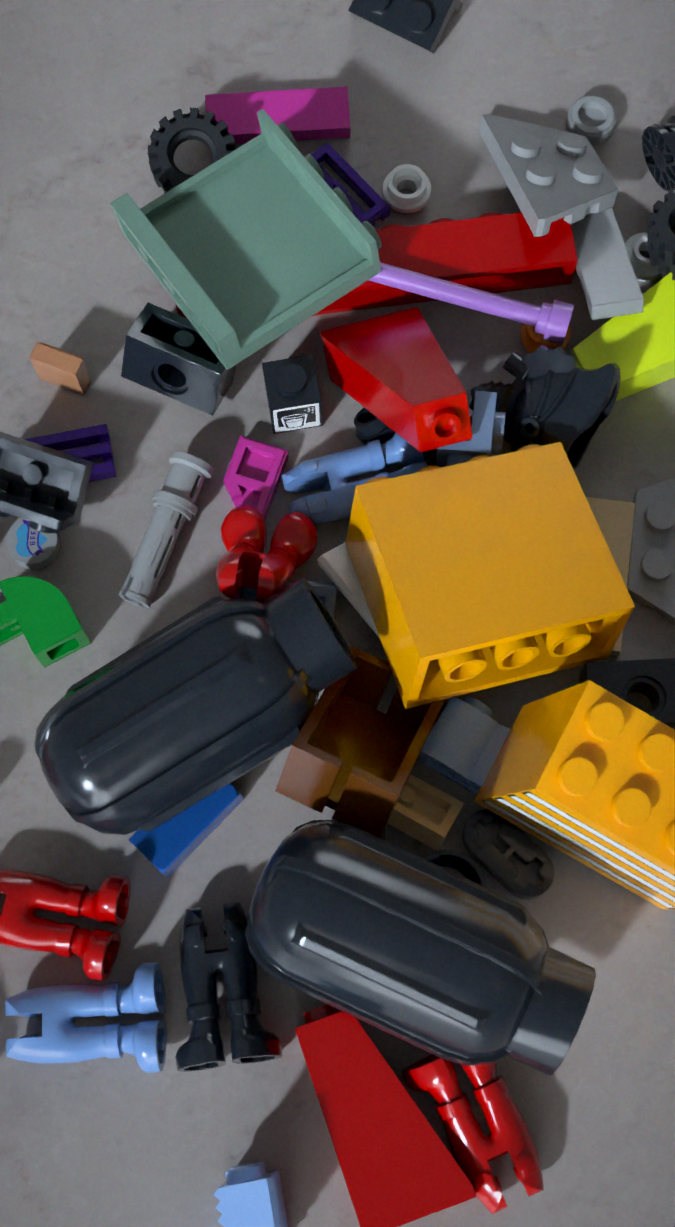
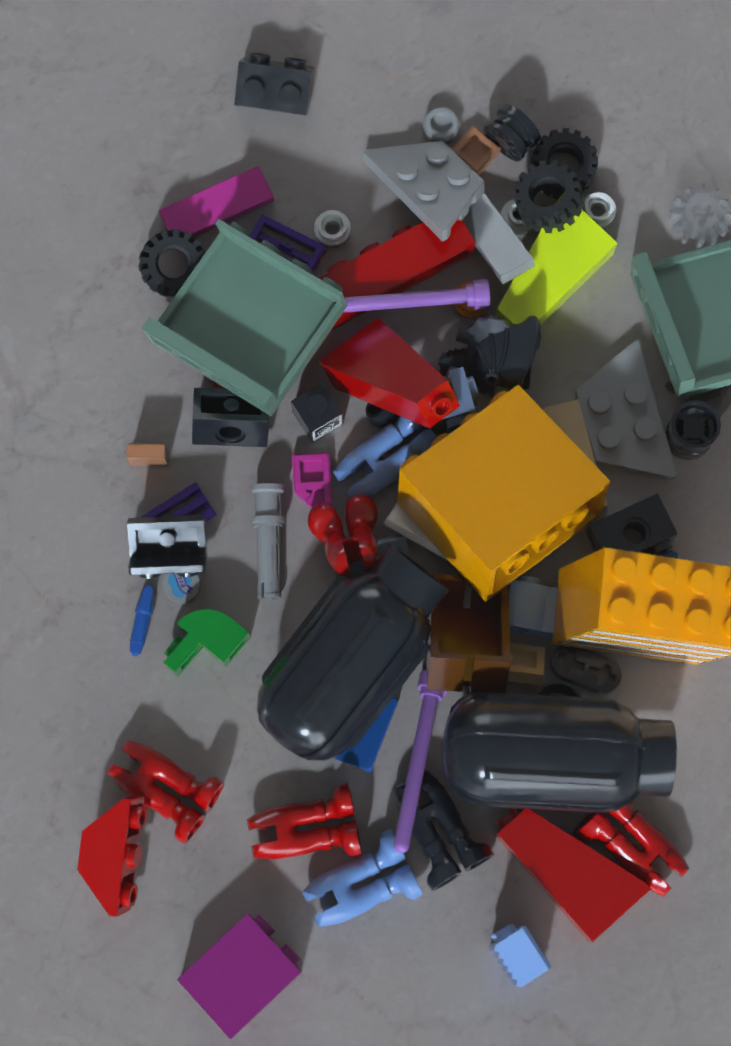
camera: 25 degrees left, 5 degrees up
(222, 895) = (417, 763): none -> medium lavender piece
(626, 161) = (476, 150): none -> nougat tile

